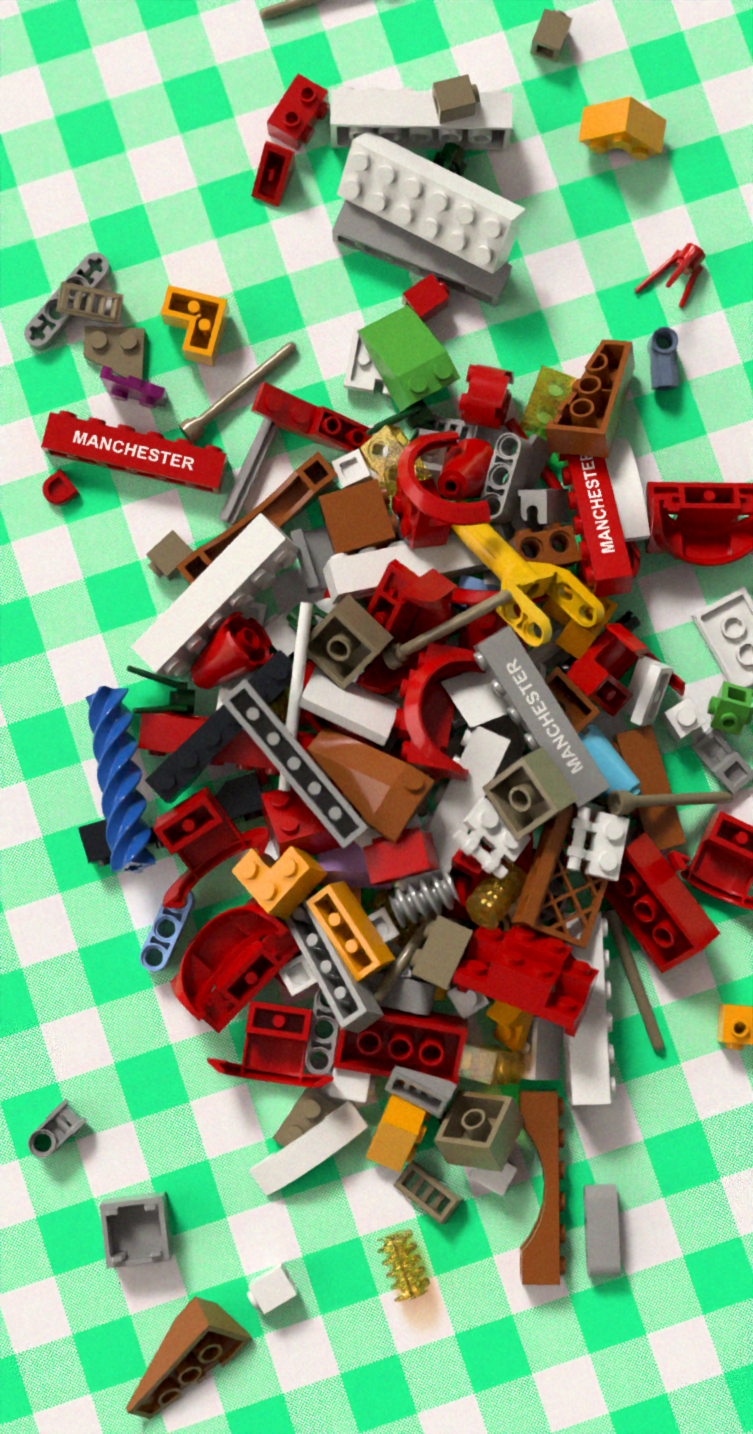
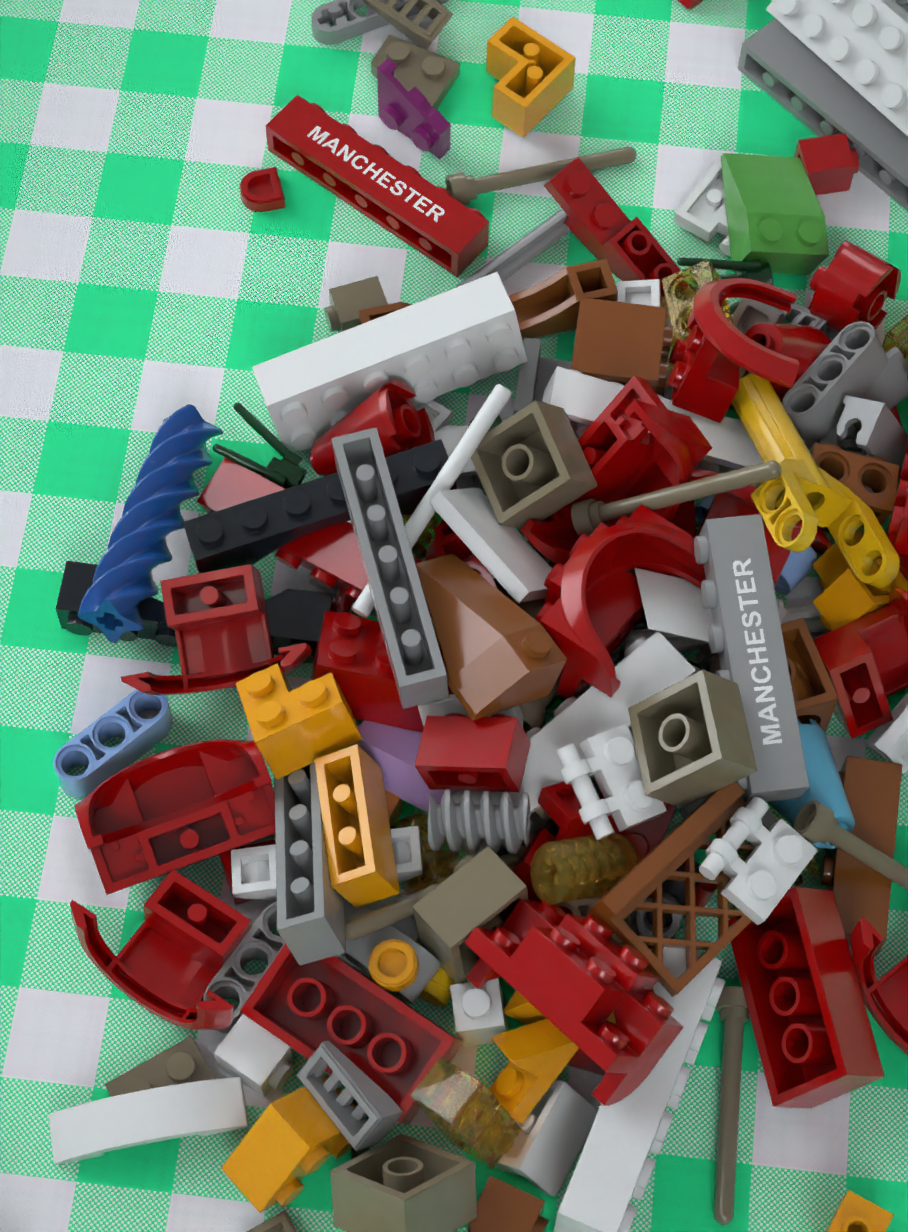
camera: 25 degrees right, 20 degrees down
(411, 1002) = (393, 965): none -> light orange tile

